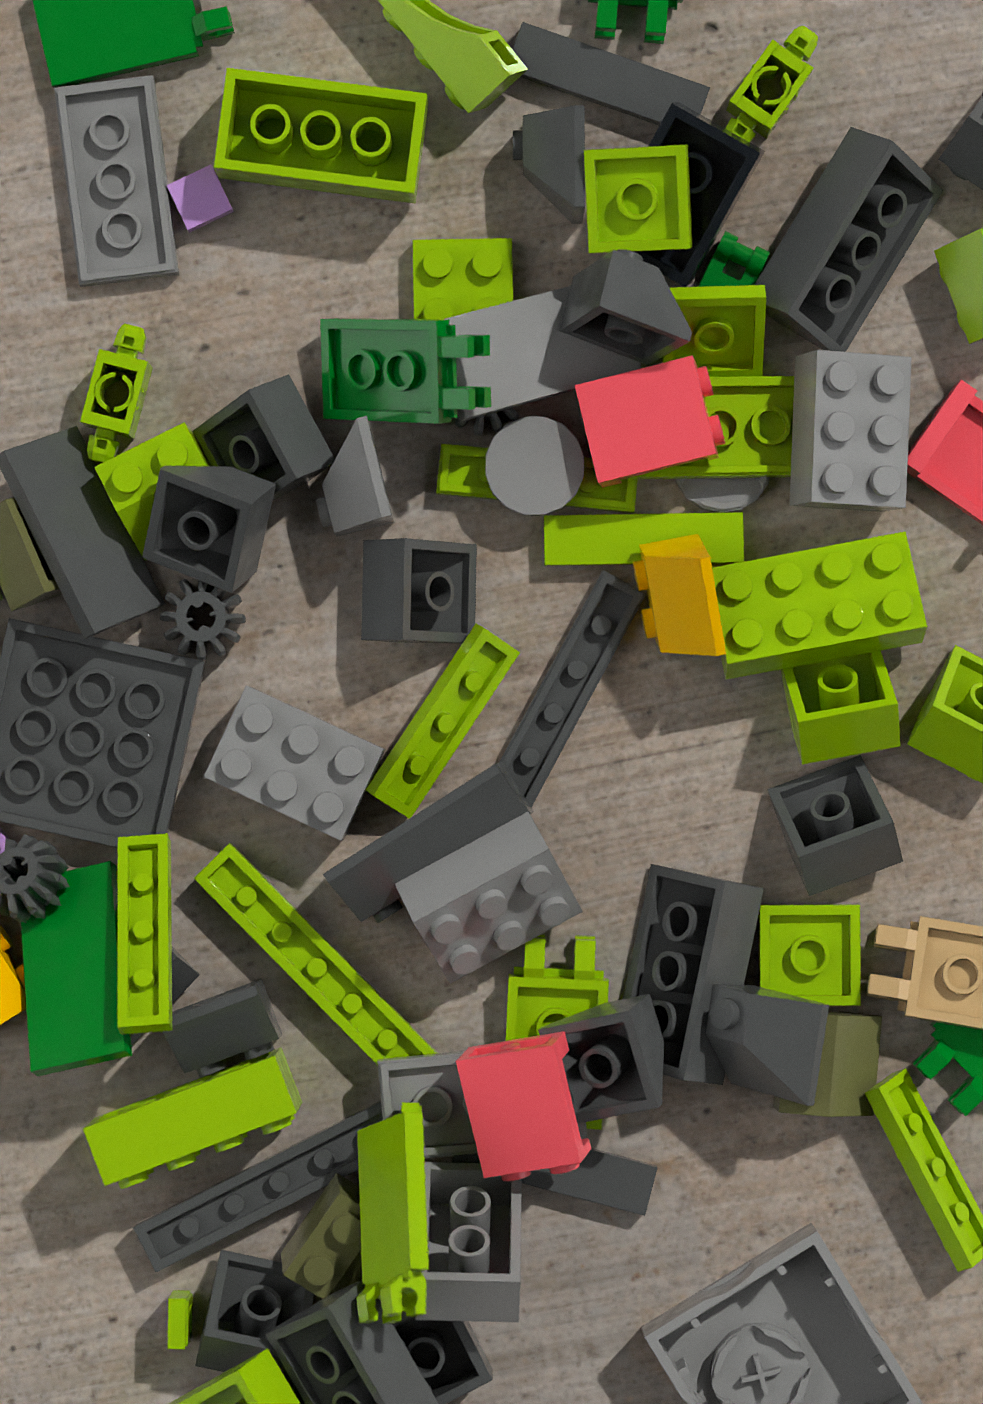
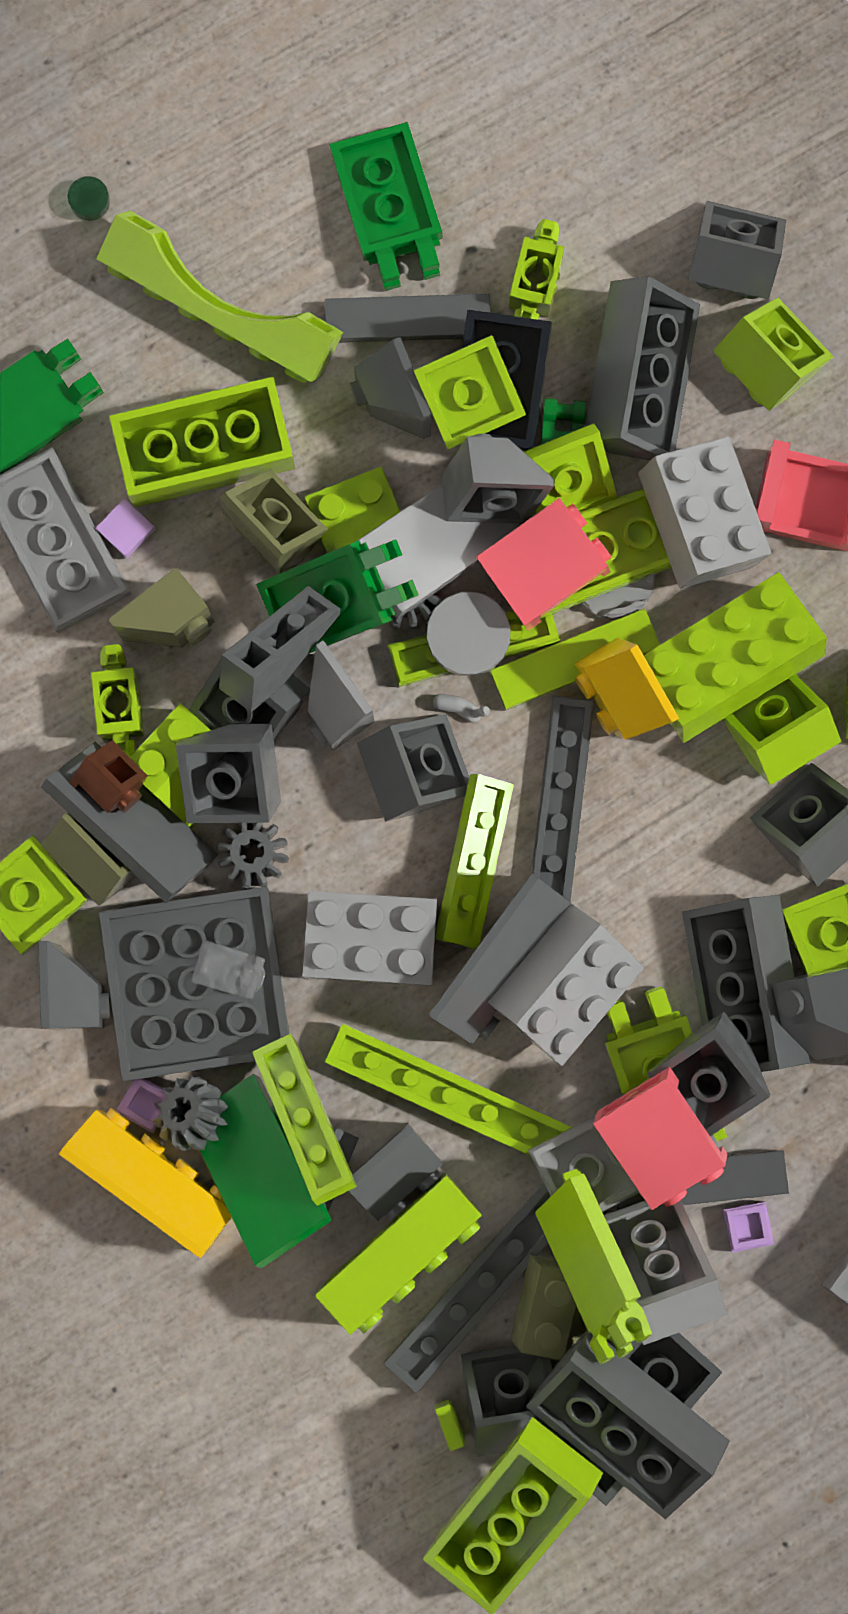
camera: 20 degrees left, 5 degrees down
(75, 477) = (110, 778): none -> copper brick
(126, 739) = (229, 970): none -> clear bracket
(206, 315) = (165, 614): none -> olive slope
(310, 404) = (275, 648): none -> dark grey slope
(367, 254) = (273, 520): none -> olive slope
(495, 541) = (460, 706): none -> light grey piece
(586, 1233) = (747, 1226): none -> lavender tile

